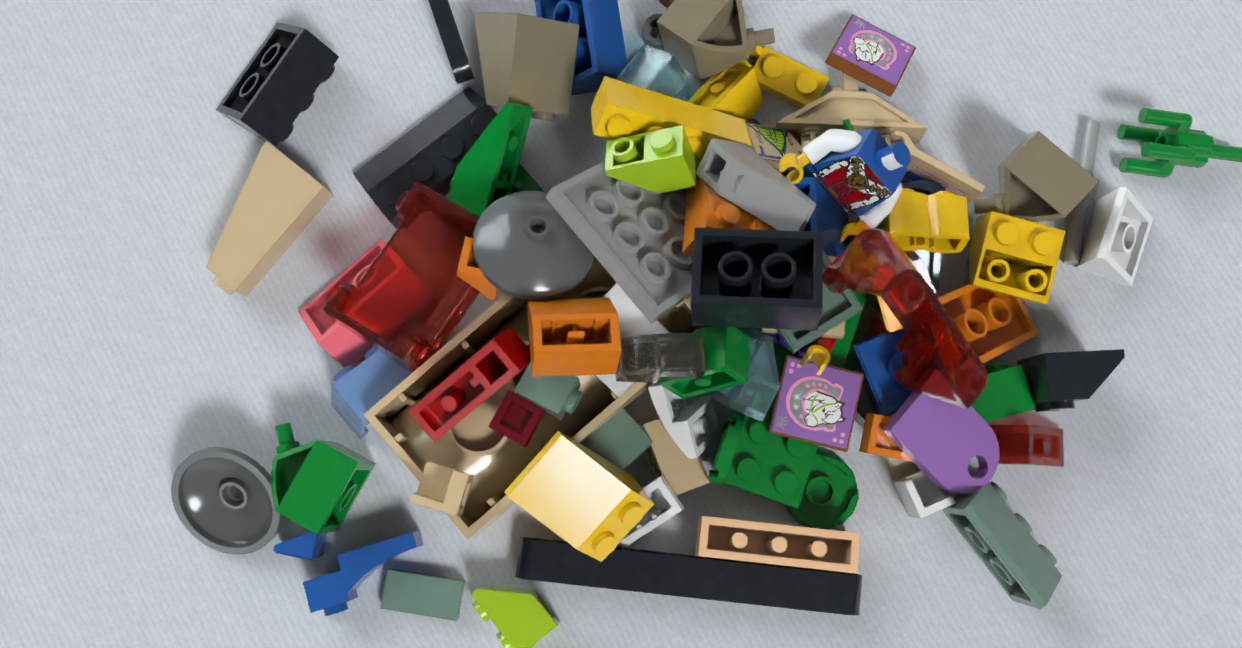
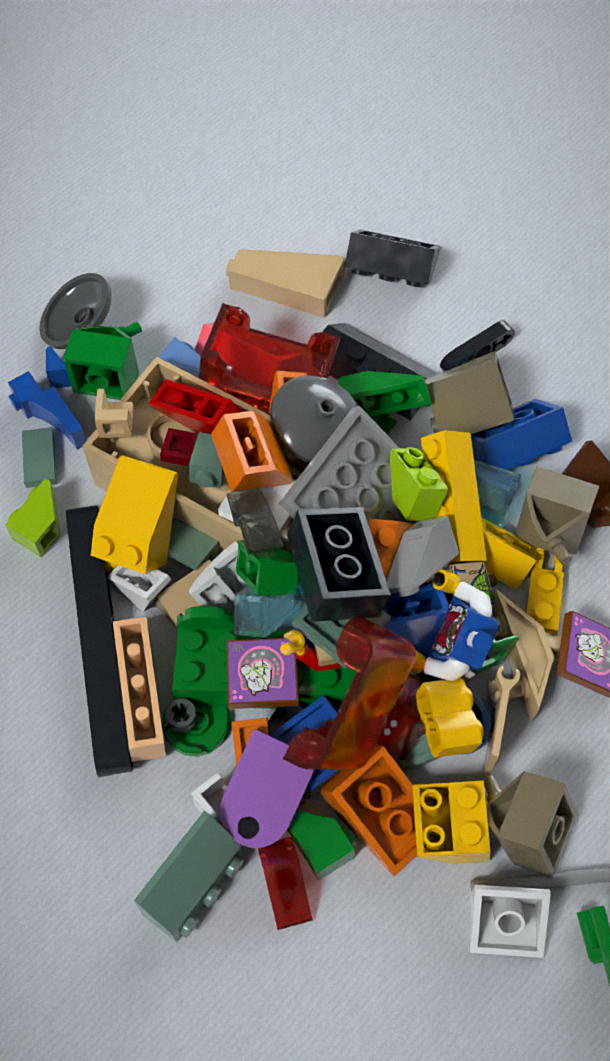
camera: 75 degrees right, 20 degrees down
(816, 517) = (183, 726): none -> dark grey bush
(1067, 377) = (355, 891): black slope -> none

